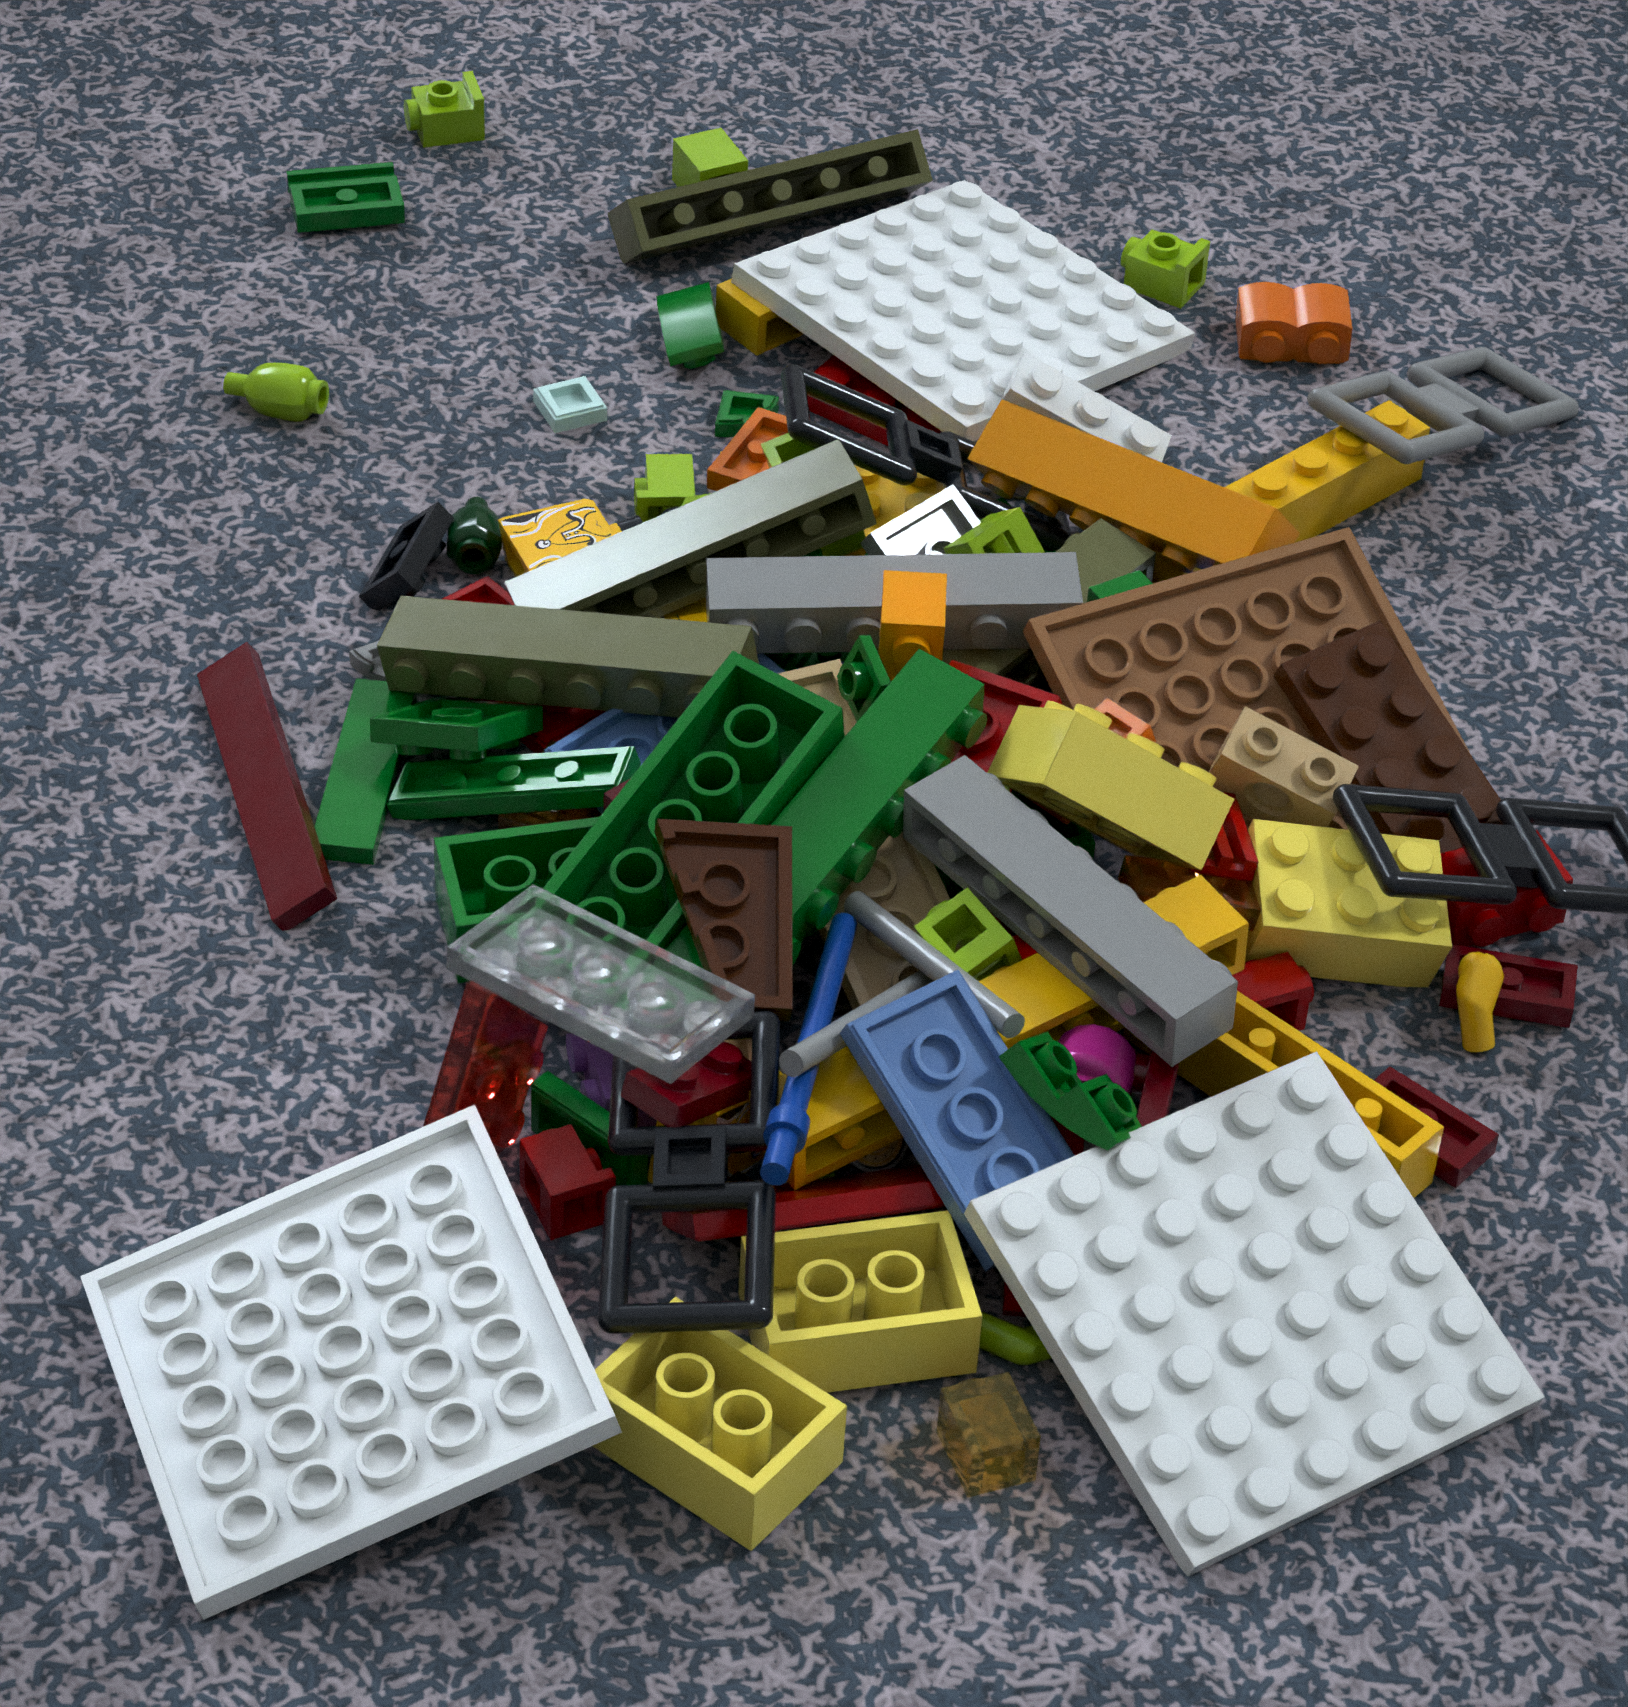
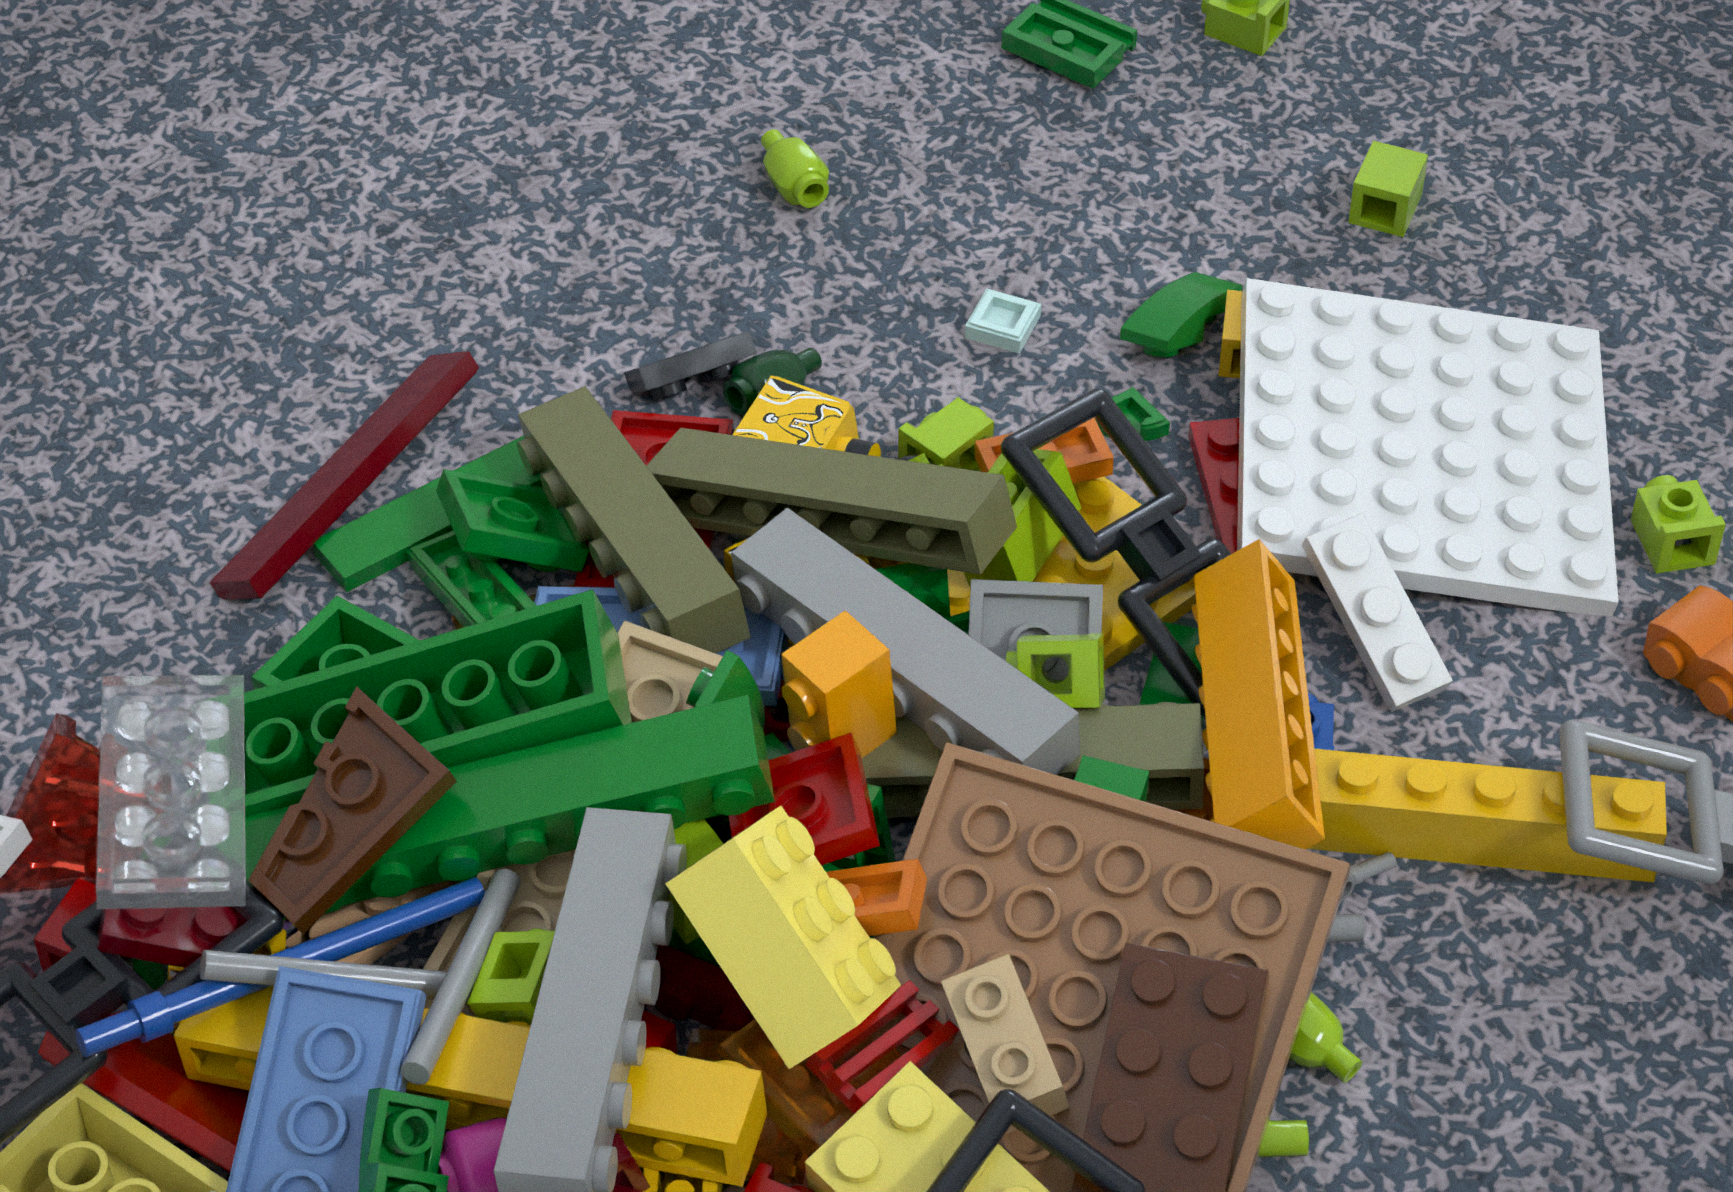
camera: 50 degrees right, 5 degrees up
(769, 196) = (1395, 241): olive brick -> none

